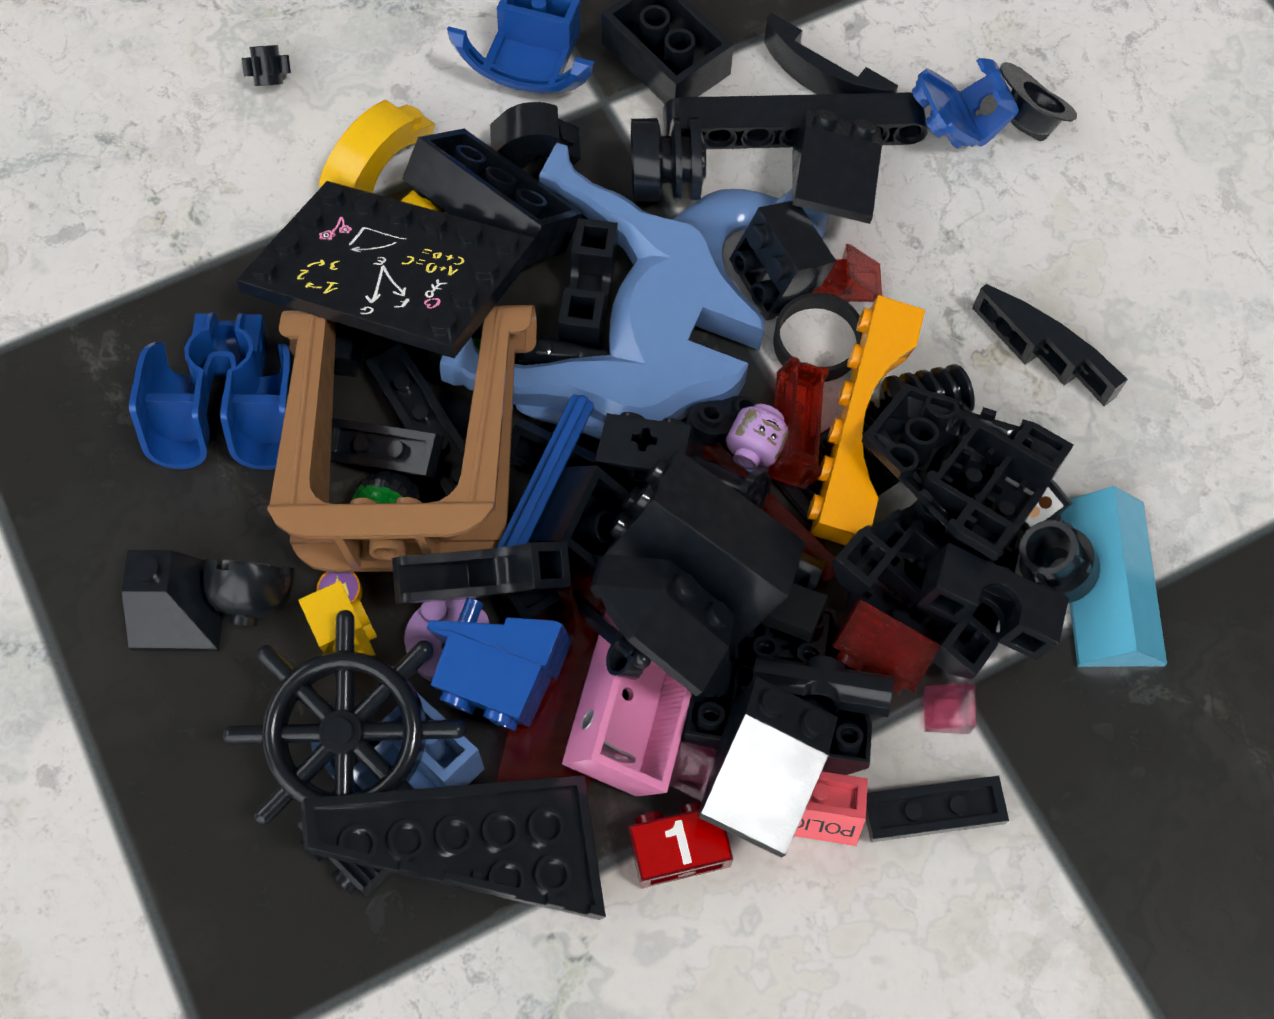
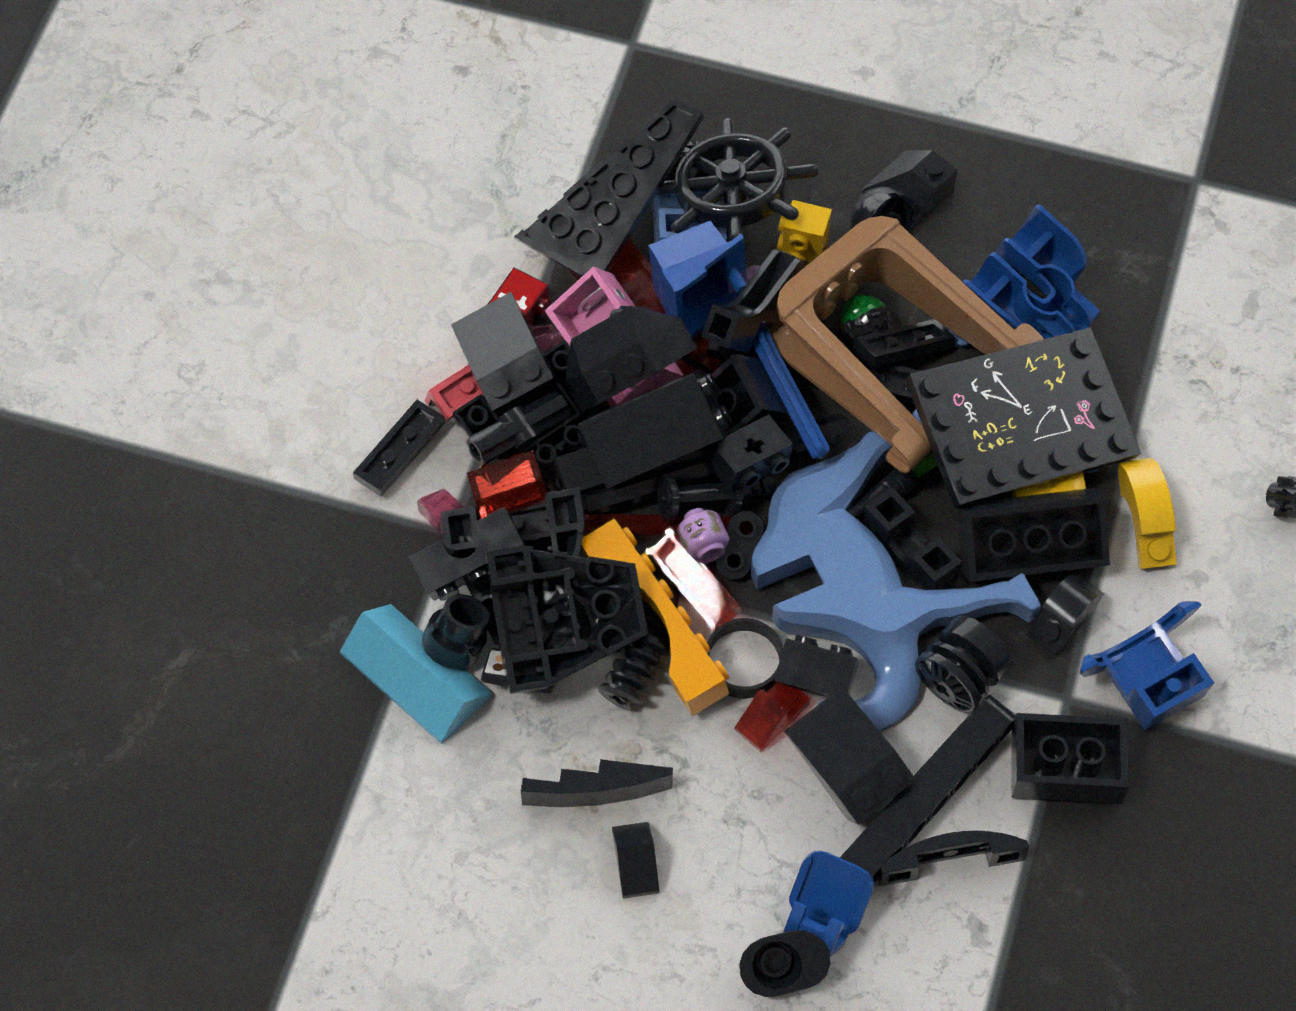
camera: 135 degrees right, 5 degrees down
(1062, 276) = (636, 860): none -> black slope

